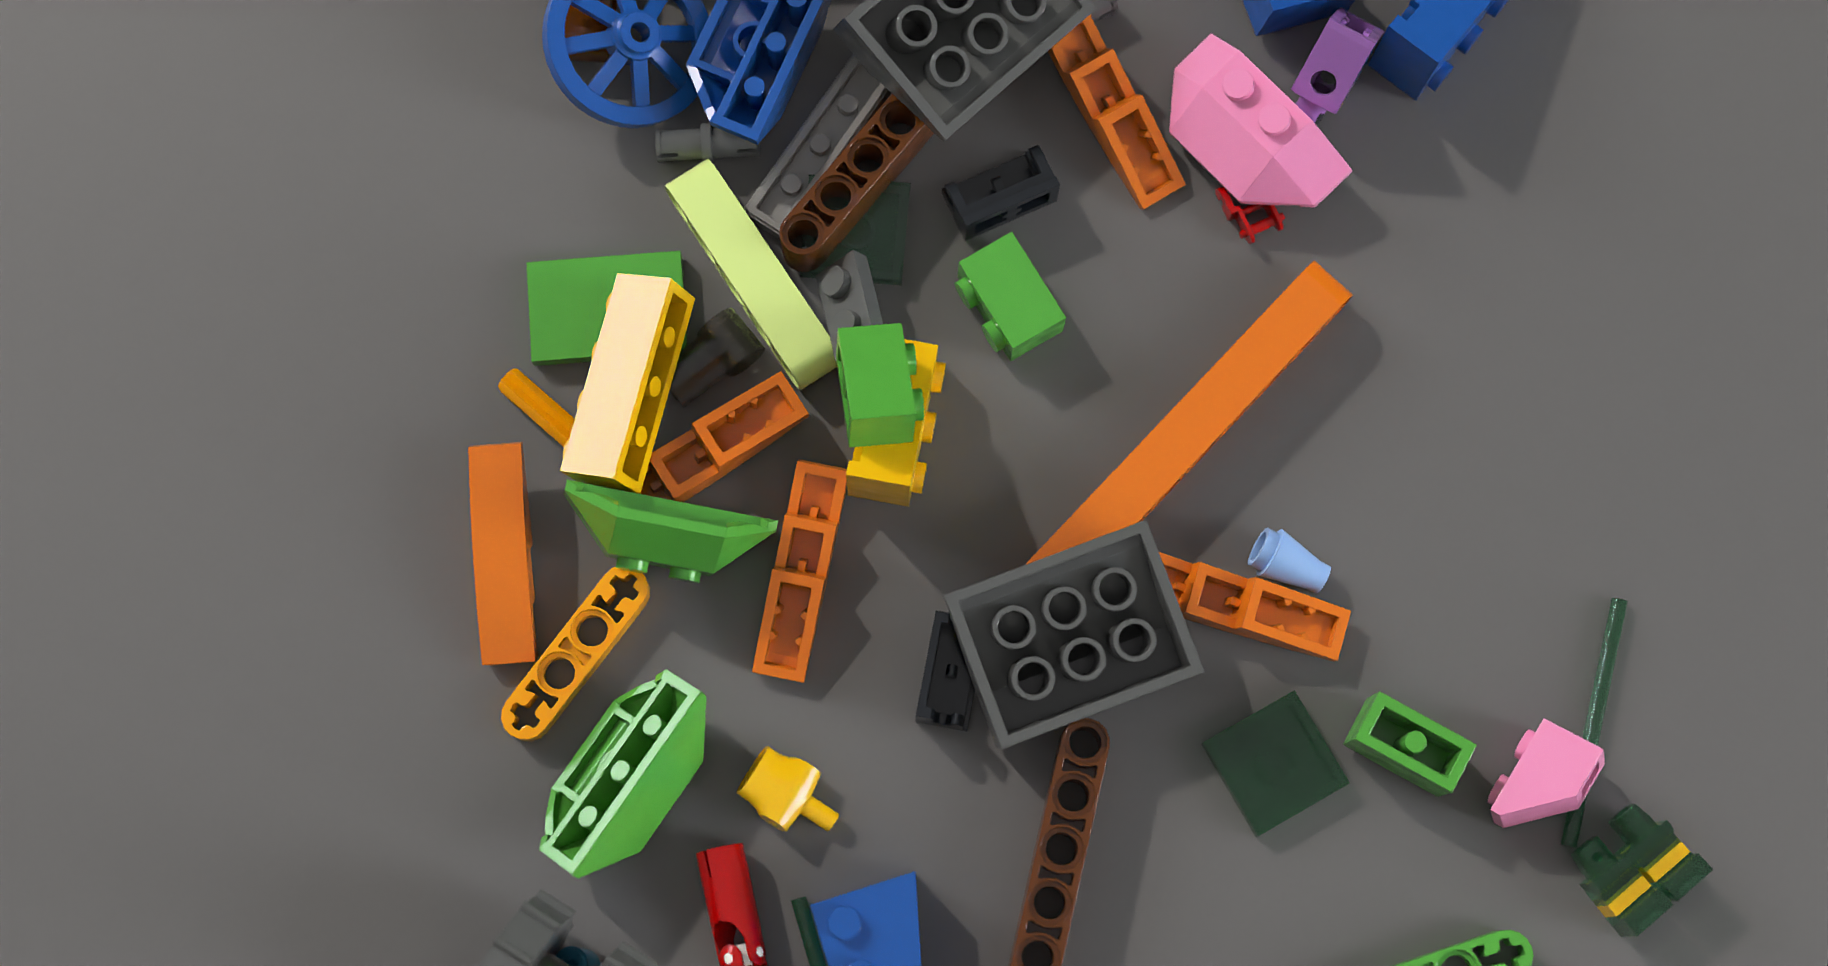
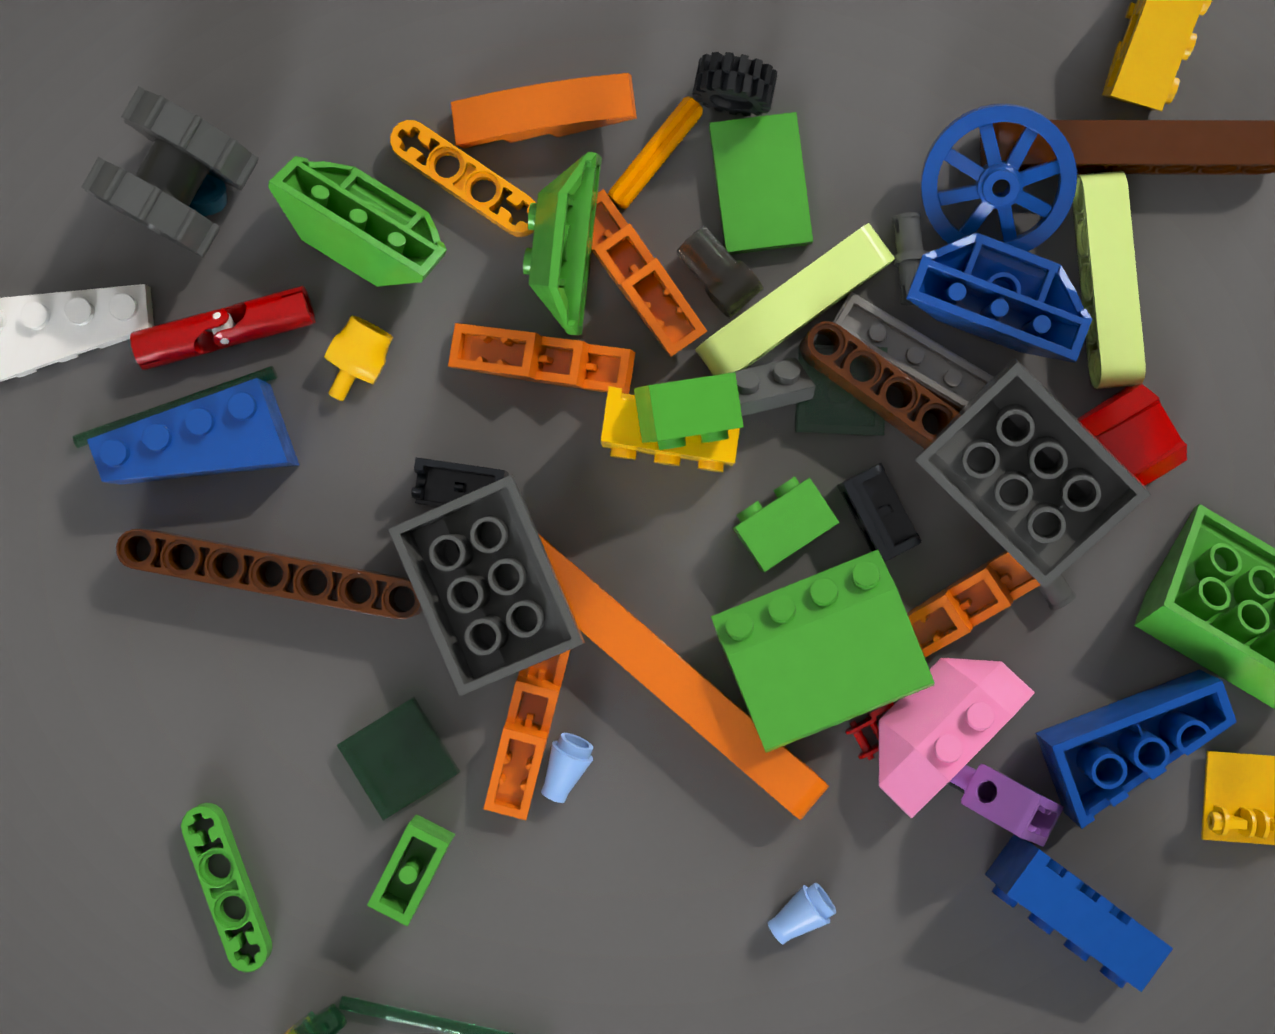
camera: 85 degrees right, 10 degrees up
(492, 325) = (735, 84): none -> black tyre
(628, 382) = (687, 201): brick -> none
(1159, 258) = (822, 650): none -> bright green slope
(1461, 299) = (803, 913): none -> light blue cone
(1549, 777) = (391, 987): bright pink slope -> none

